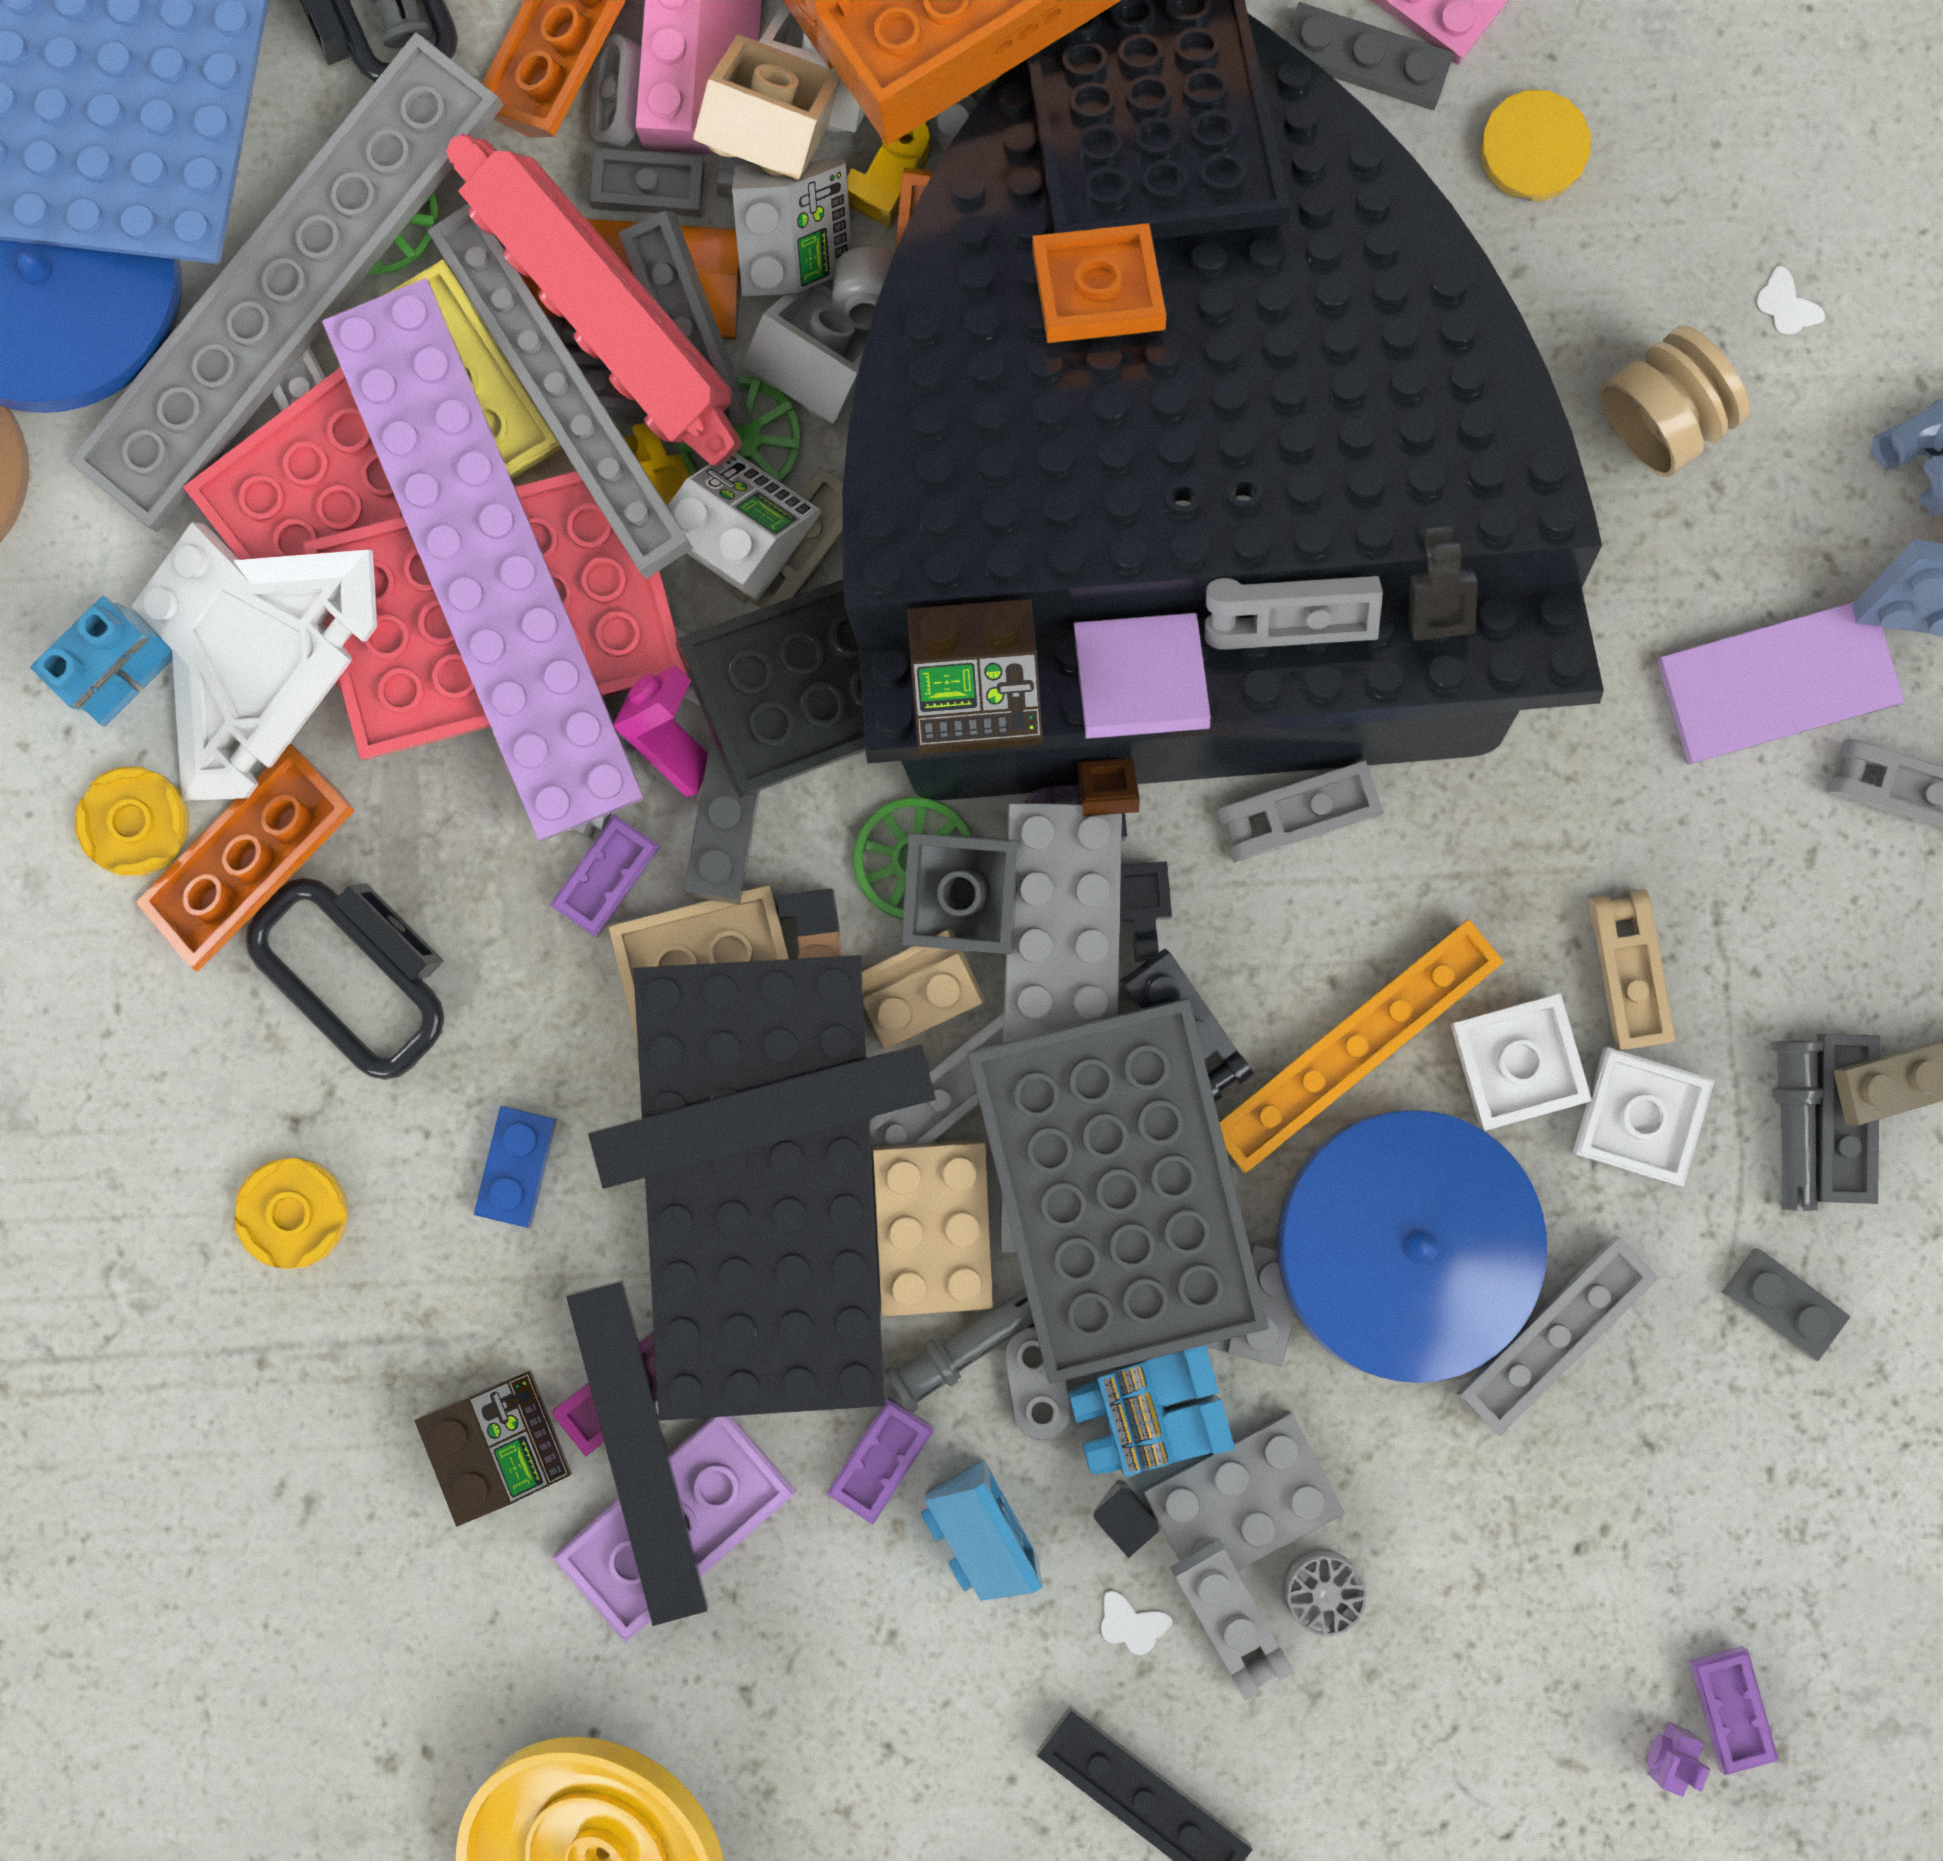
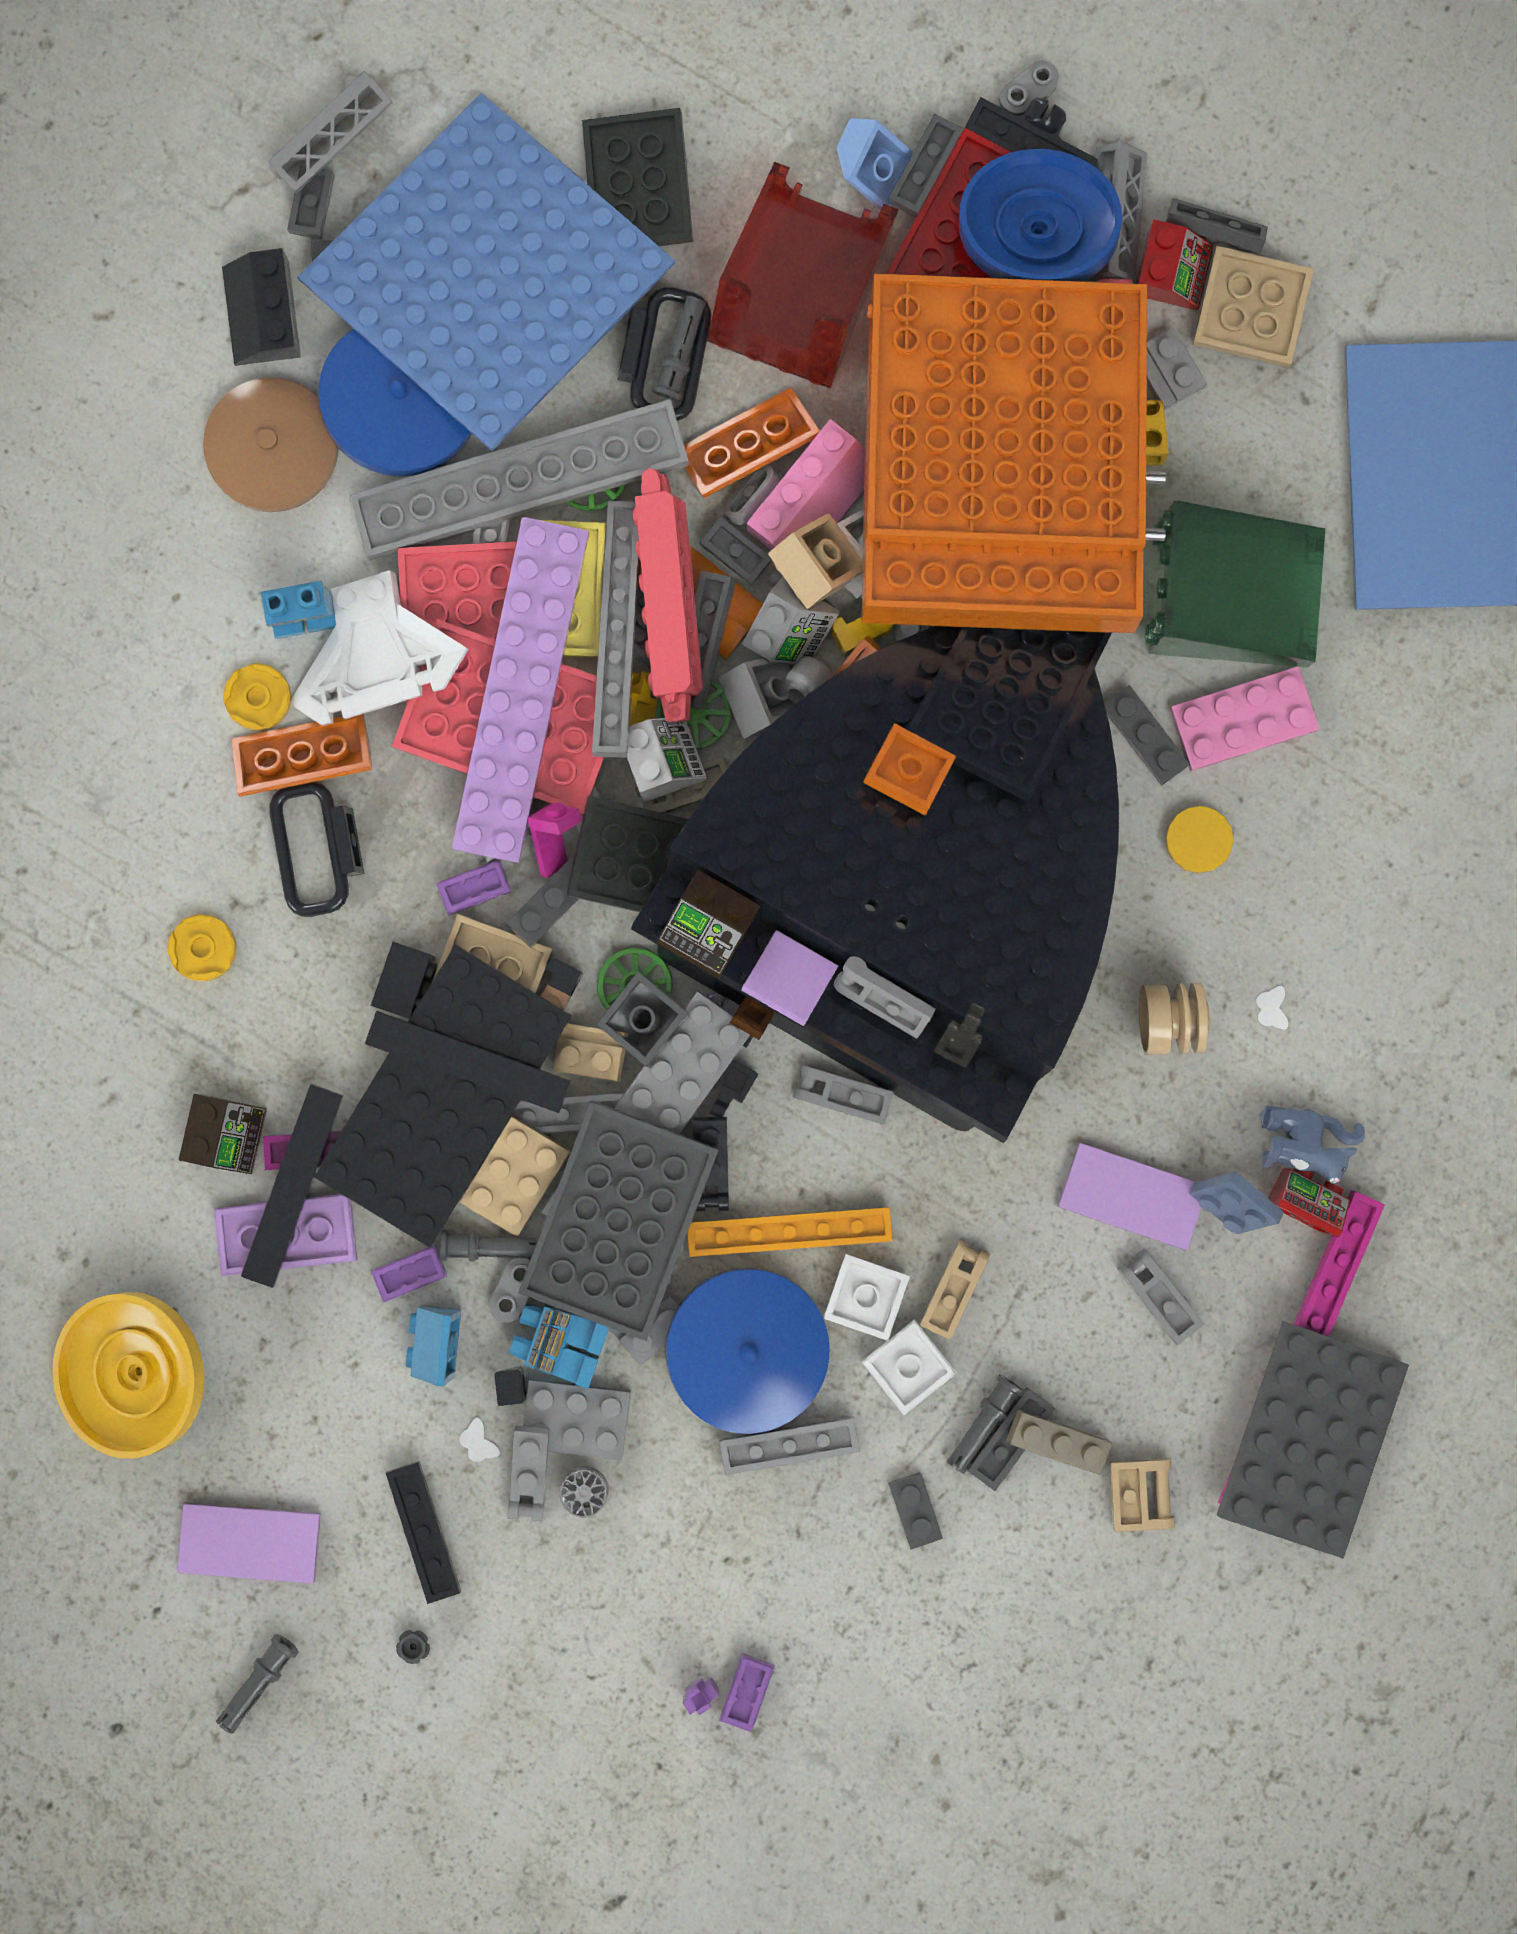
camera: 30 degrees right, 0 degrees up
(515, 1166) = (329, 1001): blue plate -> none
(596, 1066) = (403, 980): none -> black brick

